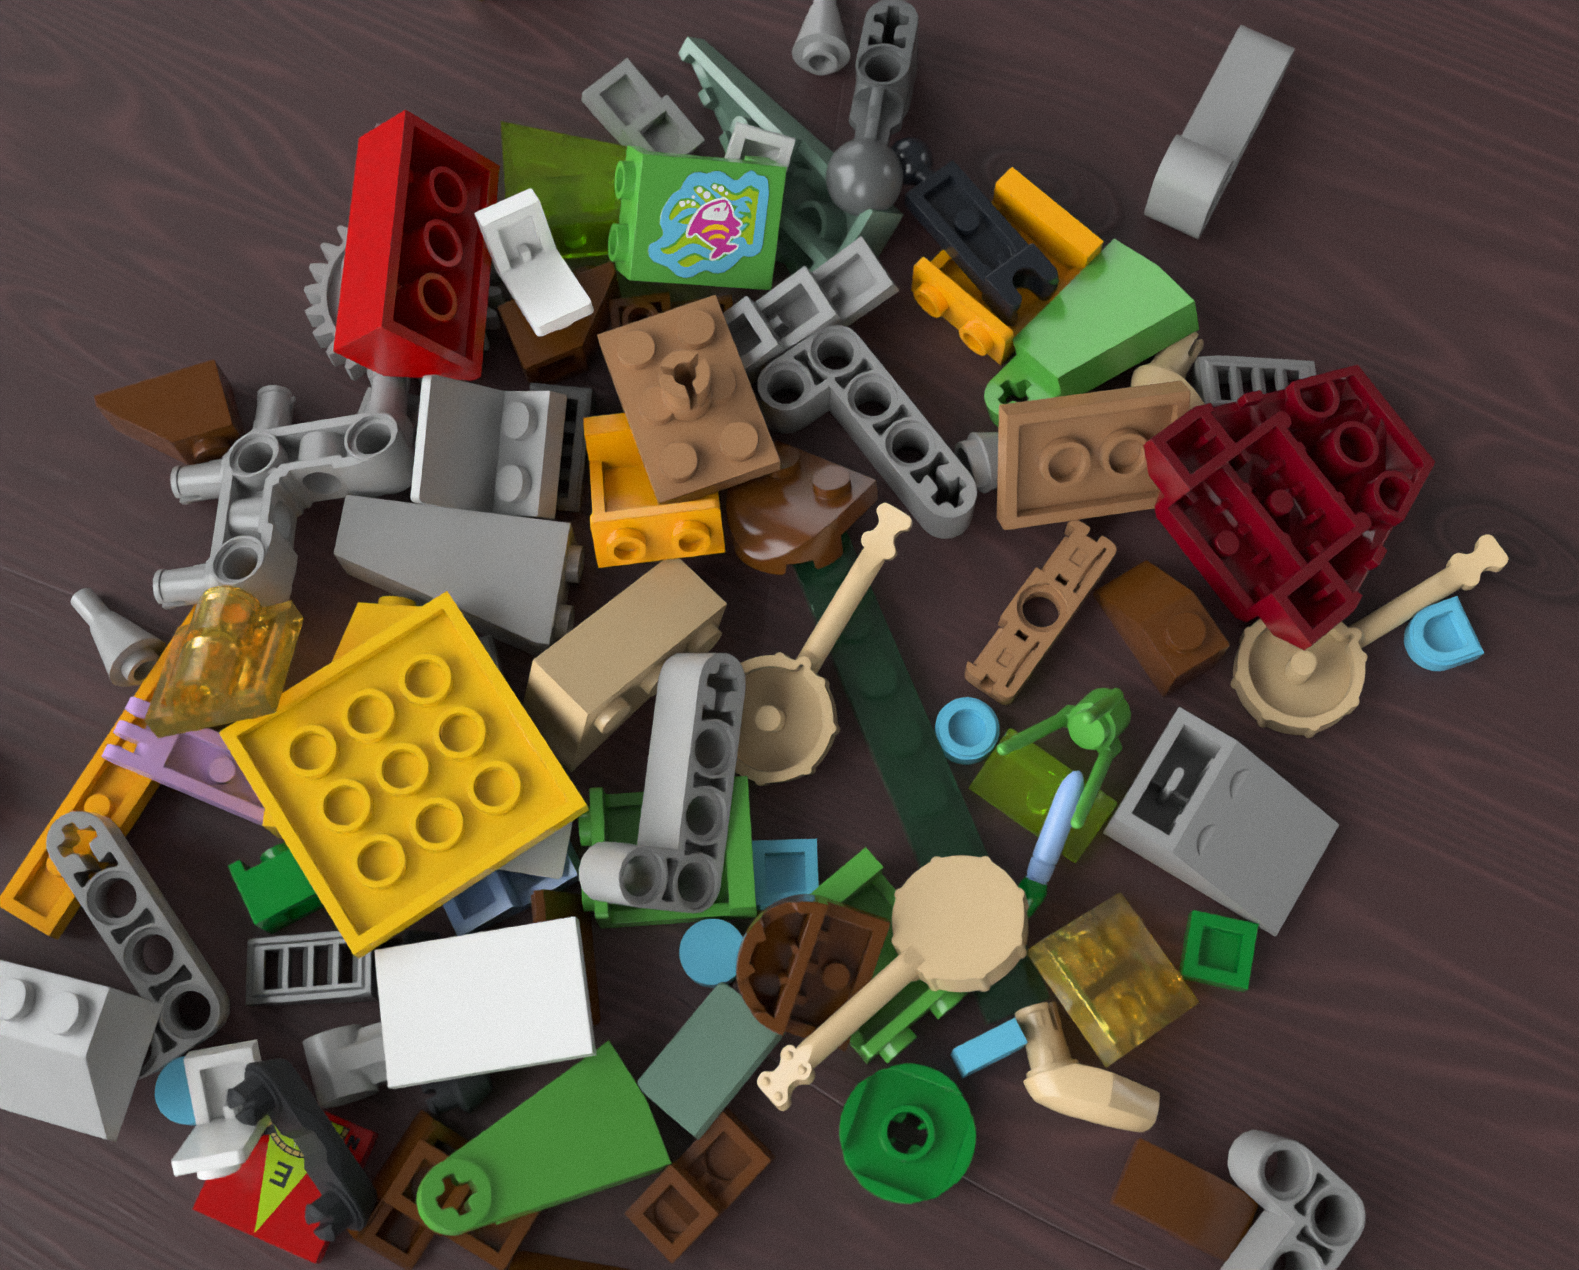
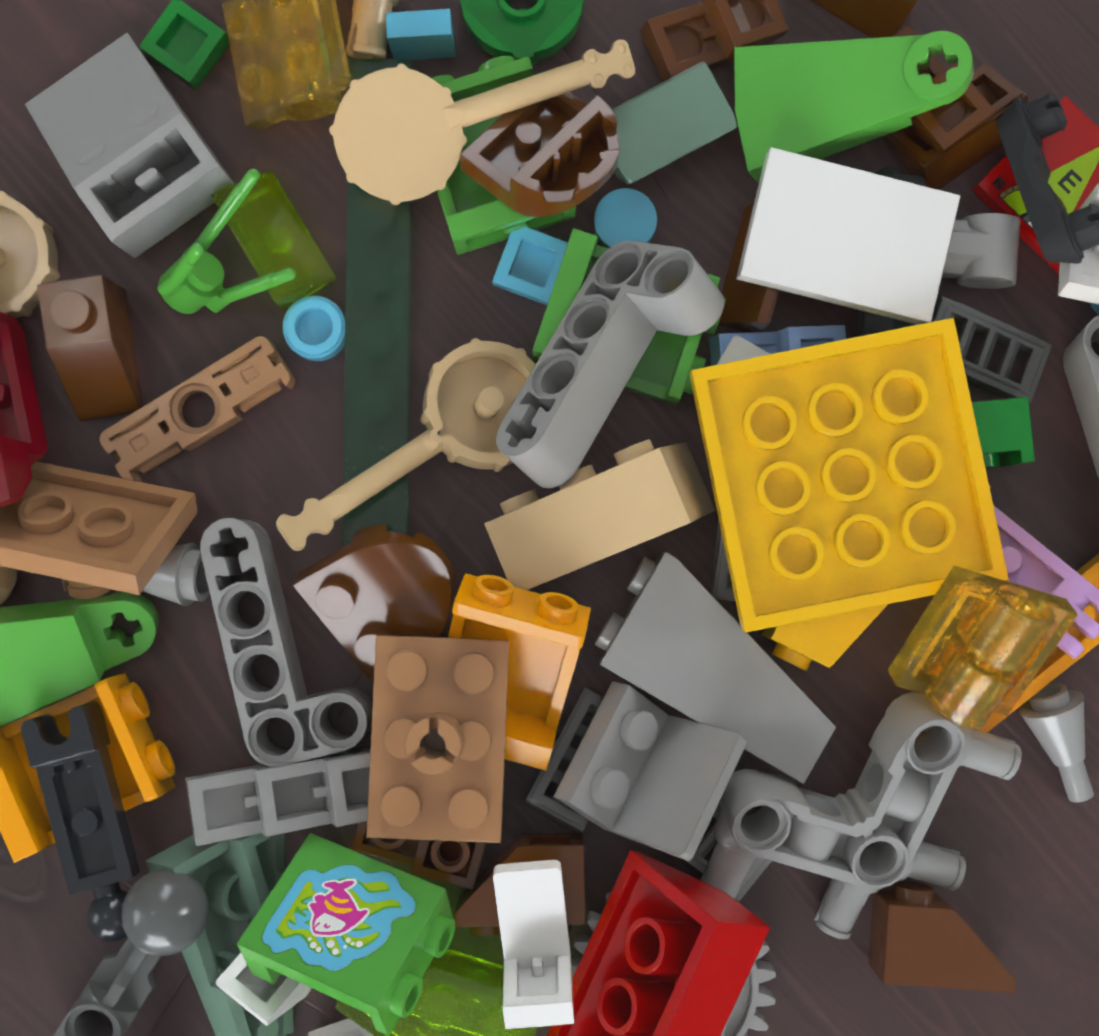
camera: 155 degrees left, 15 degrees up
(1051, 841) = (284, 189): light blue piece -> none

